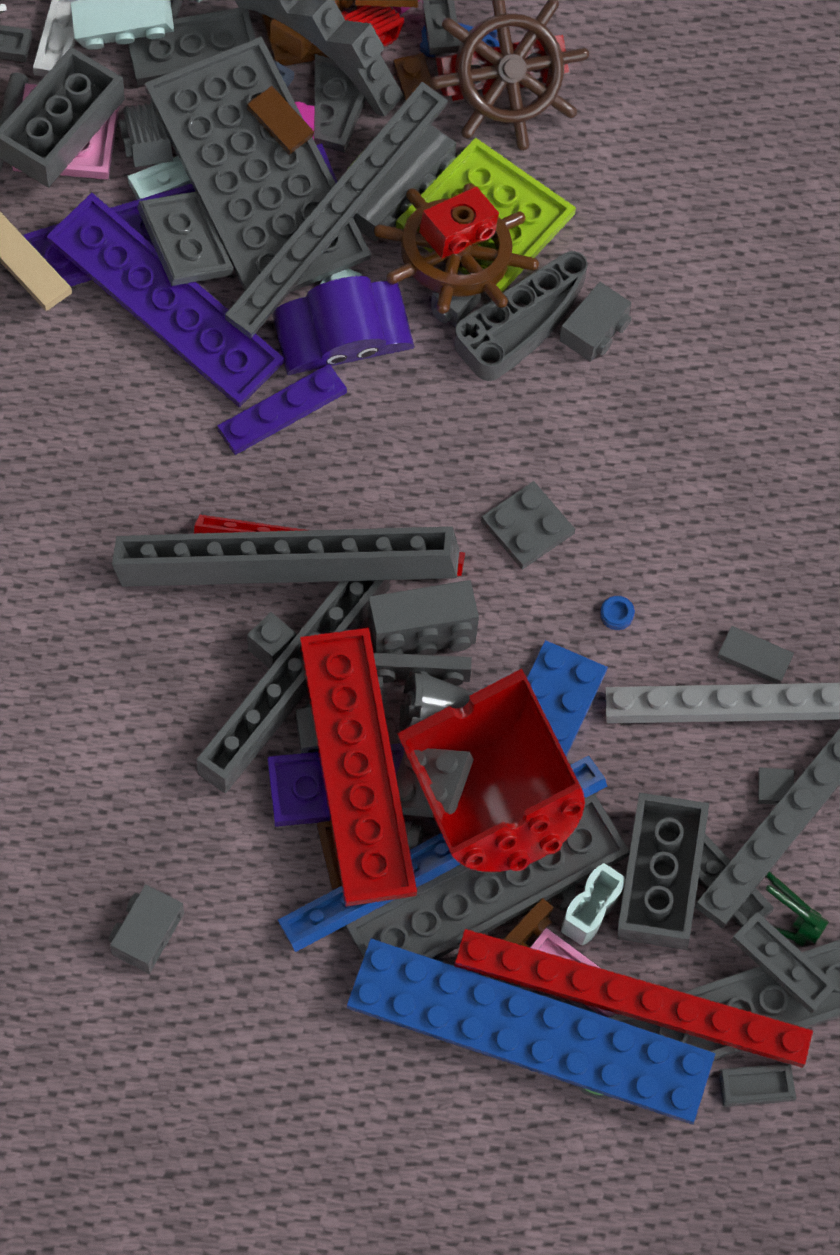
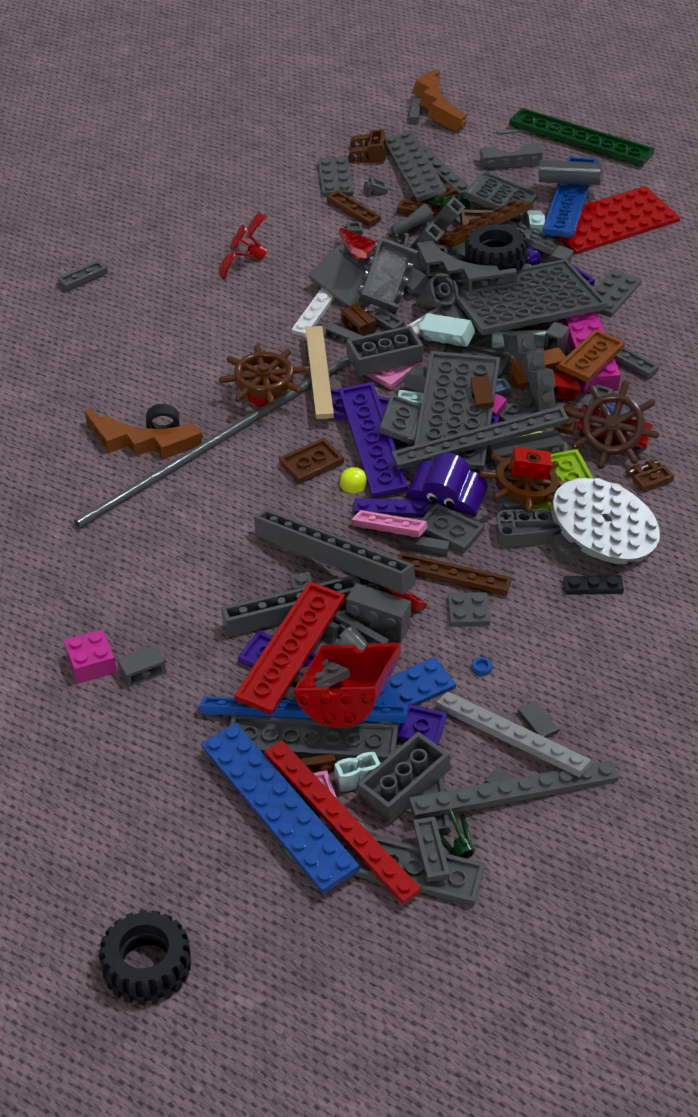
camera: 40 degrees right, 20 degrees down
(58, 964) = (90, 656): none -> dark pink brick
(96, 393) = (311, 460): none -> reddish brown plate
(188, 393) = (353, 480): none -> neon yellow hair
(311, 446) = (389, 523): none -> bright pink plate
(384, 449) = (425, 545): none -> dark grey piece
(397, 395) = (452, 527): none -> dark grey plate
(462, 477) = (458, 574): none -> reddish brown plate
(569, 262) = (630, 526): none -> plate
(614, 128) = (650, 475): none -> reddish brown plate
(623, 764) = (423, 720): none -> dark purple plate
(665, 373) = (593, 584): none -> black plate
(757, 1085) = (374, 902): dark grey tile -> none

